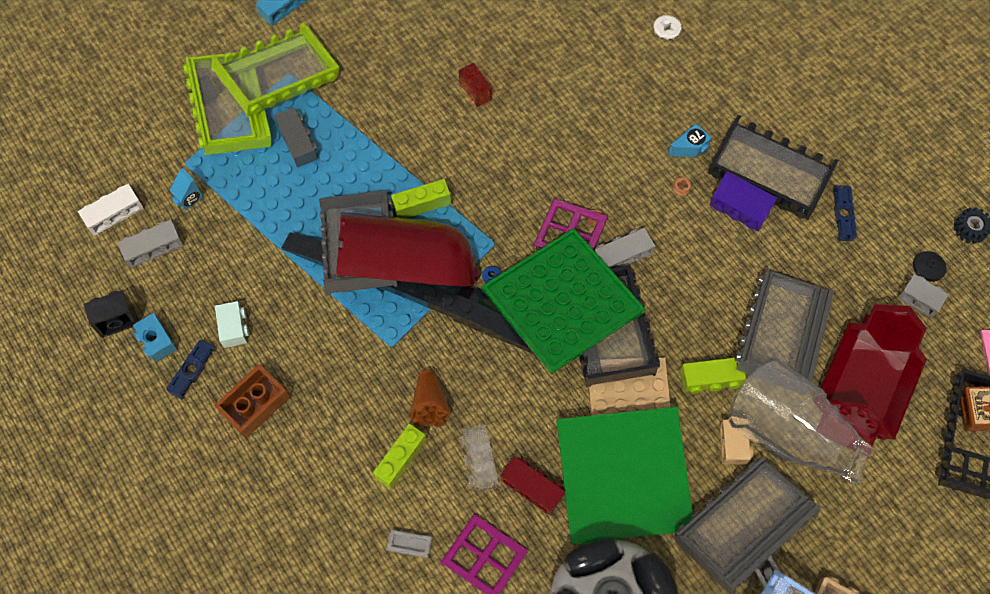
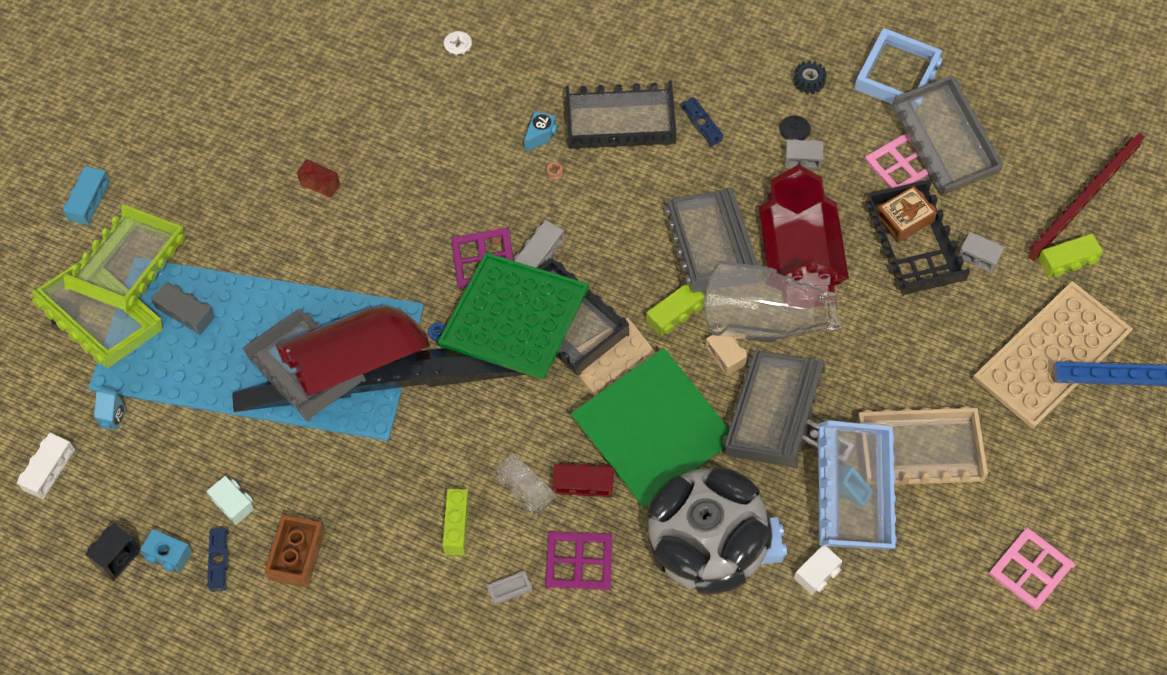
camera: 30 degrees left, 5 degrees down
(150, 243) = (105, 474): light grey brick -> none
(421, 199) = (336, 299): lime brick -> none
(429, 401) = (452, 463): dark orange cone -> none
(742, 201) = (614, 155): dark purple slope -> none

